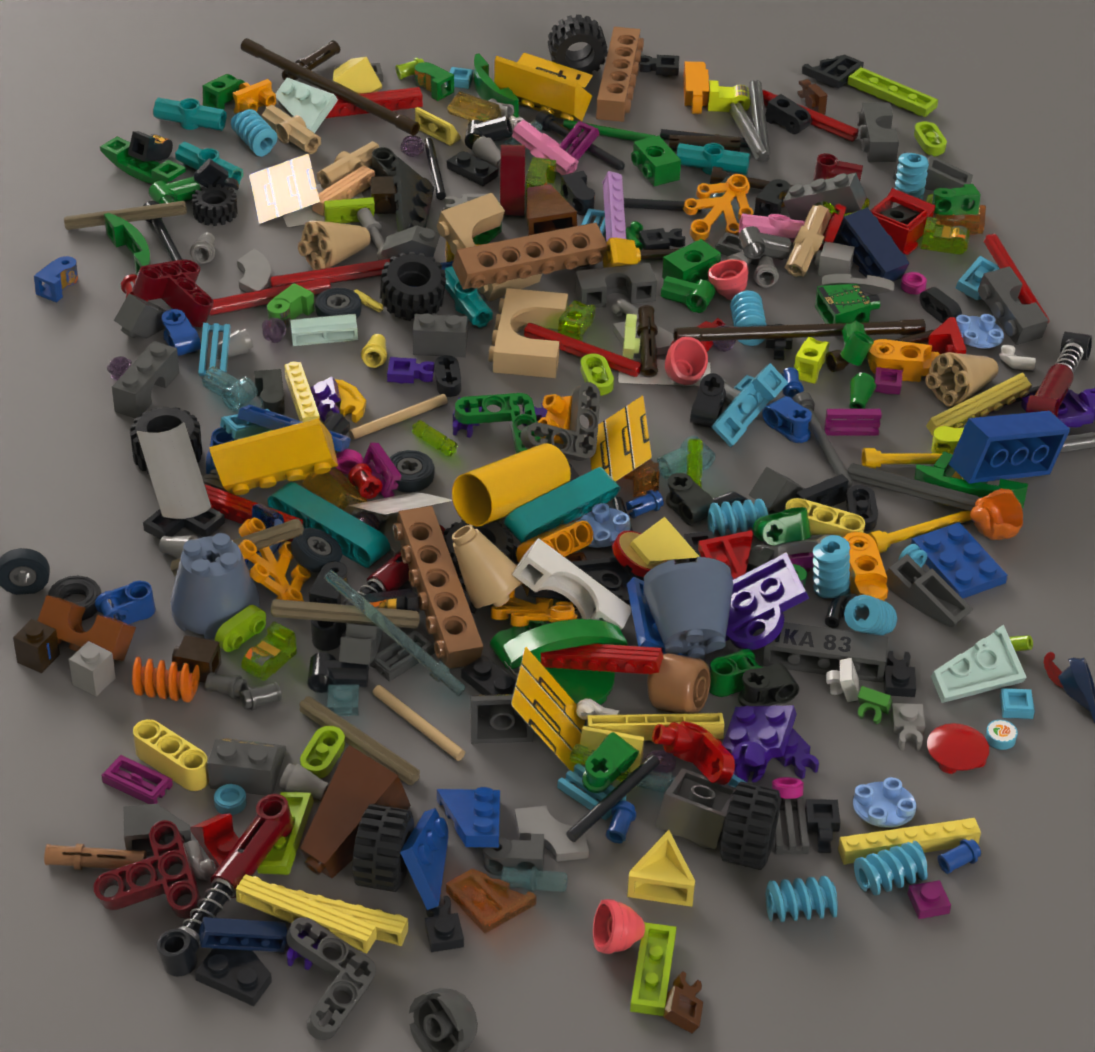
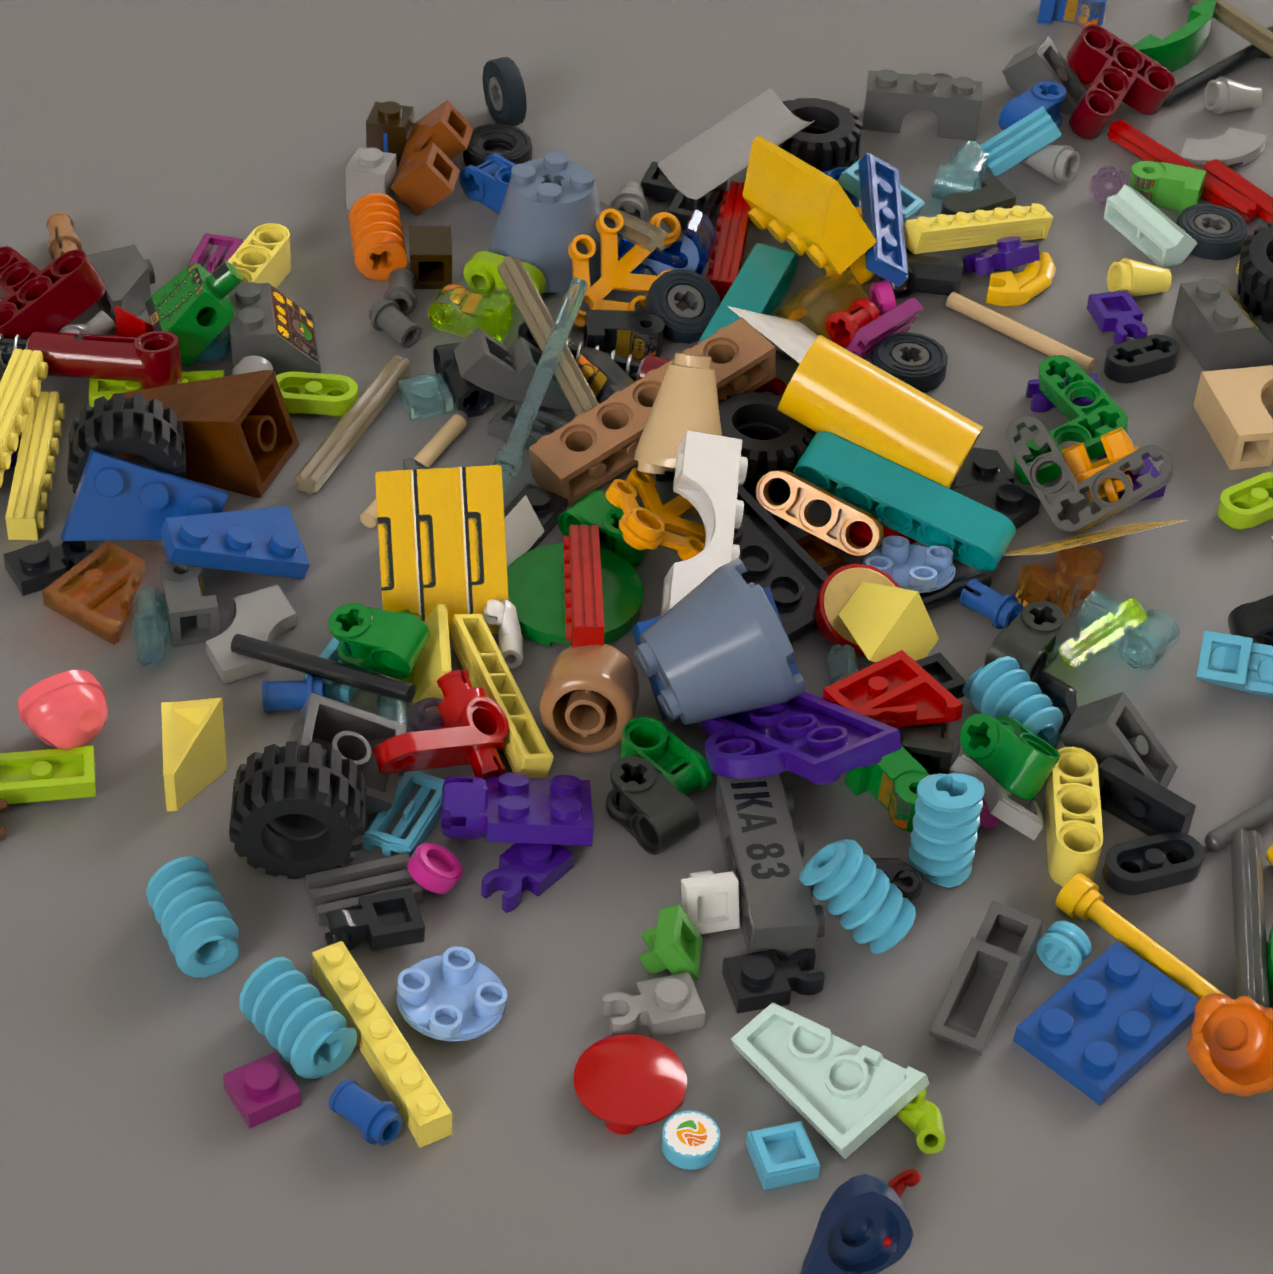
camera: 70 degrees right, 0 degrees up
(227, 784) = (194, 307): none -> green torso
(434, 438) = (995, 372): clear neon green axle -> none
(562, 636) = (628, 573): green slope -> none
(866, 567) = (996, 872): light orange piece -> none

